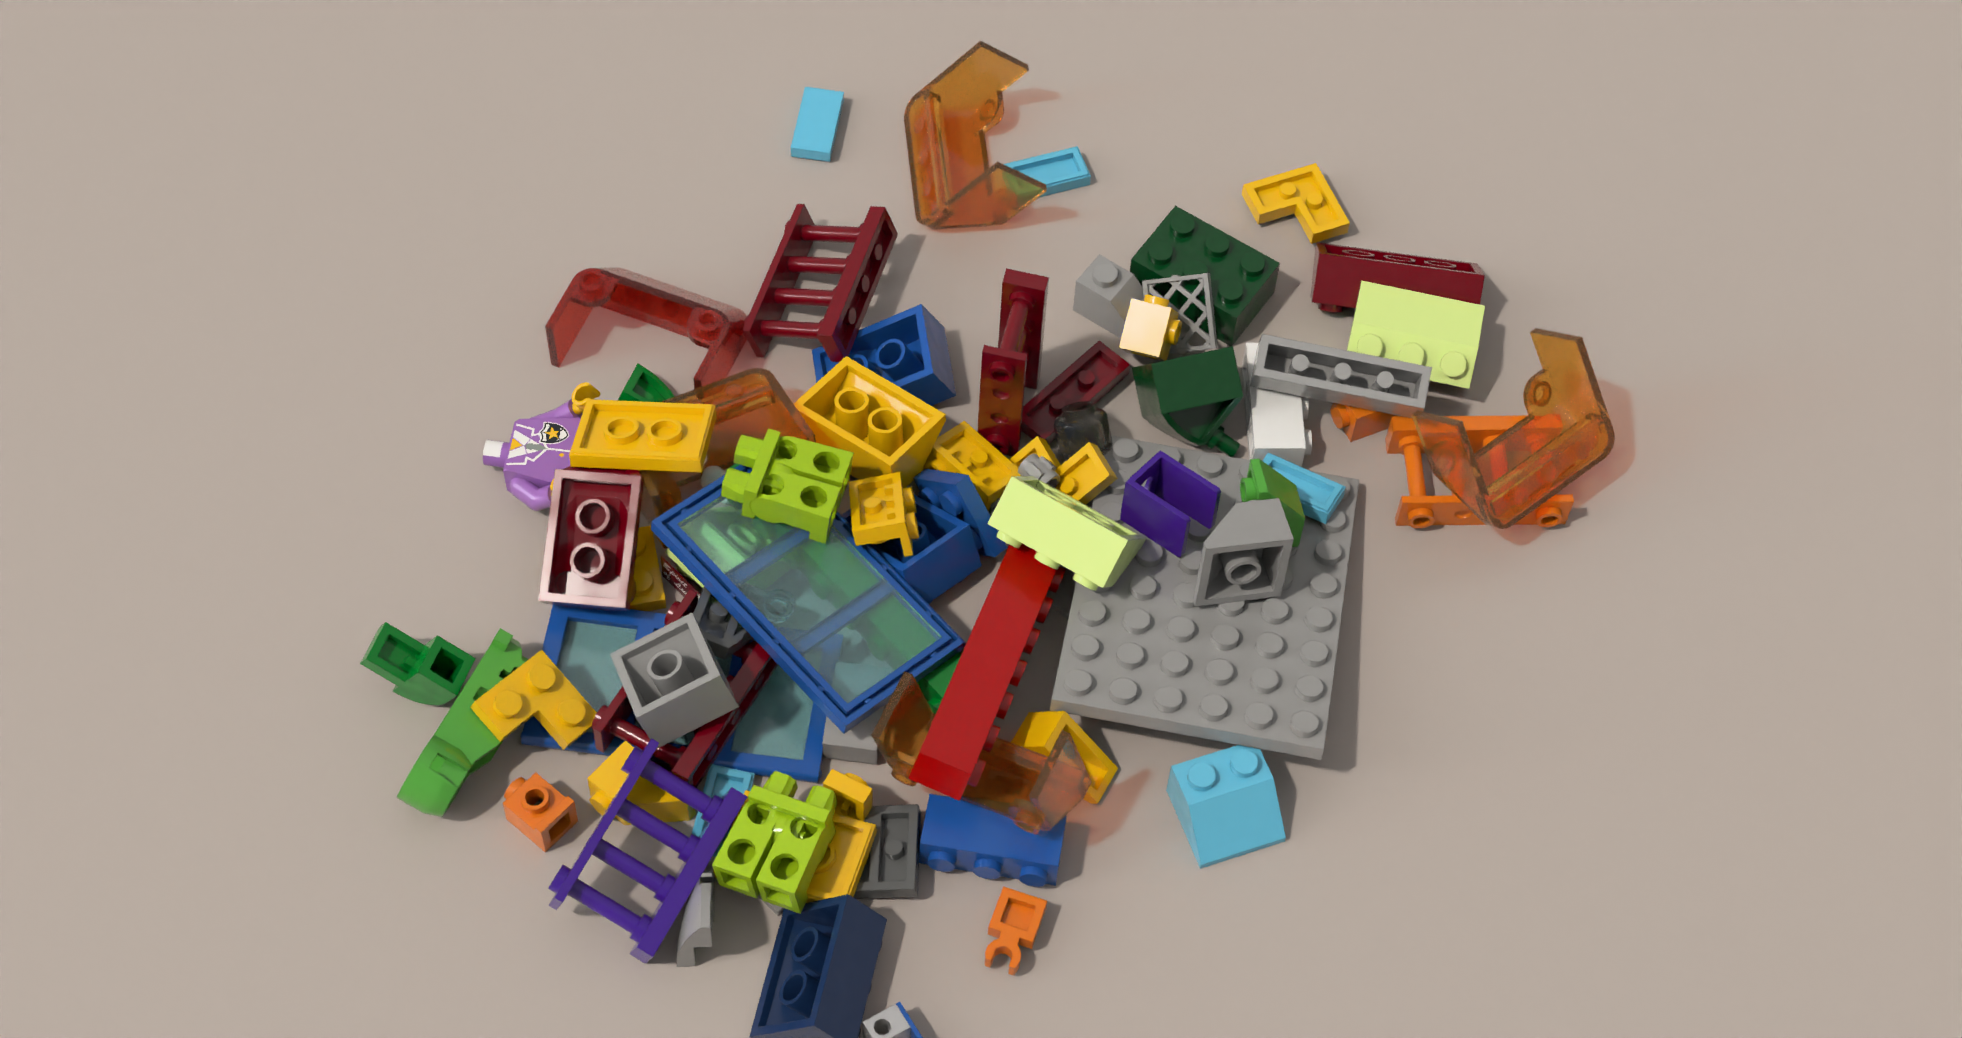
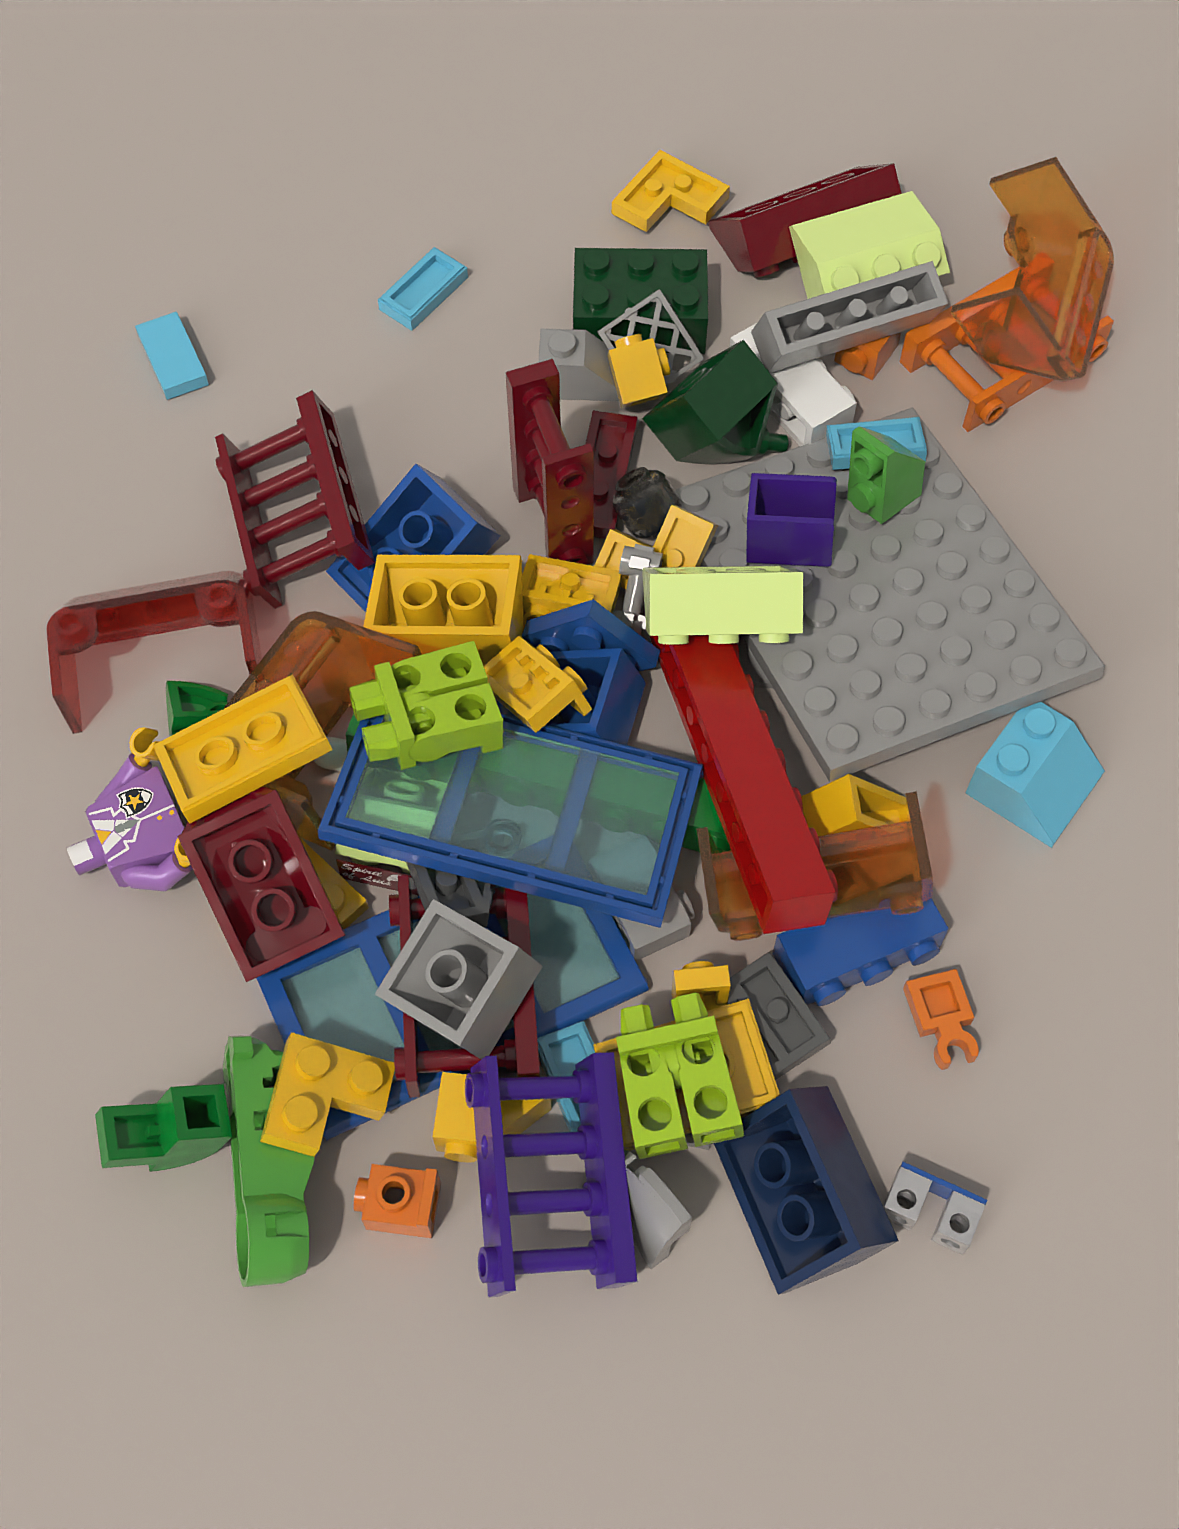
camera: 30 degrees left, 5 degrees up
(949, 148) = (315, 316): clear orange windscreen -> none
(1245, 555) = (908, 521): light grey slope -> none

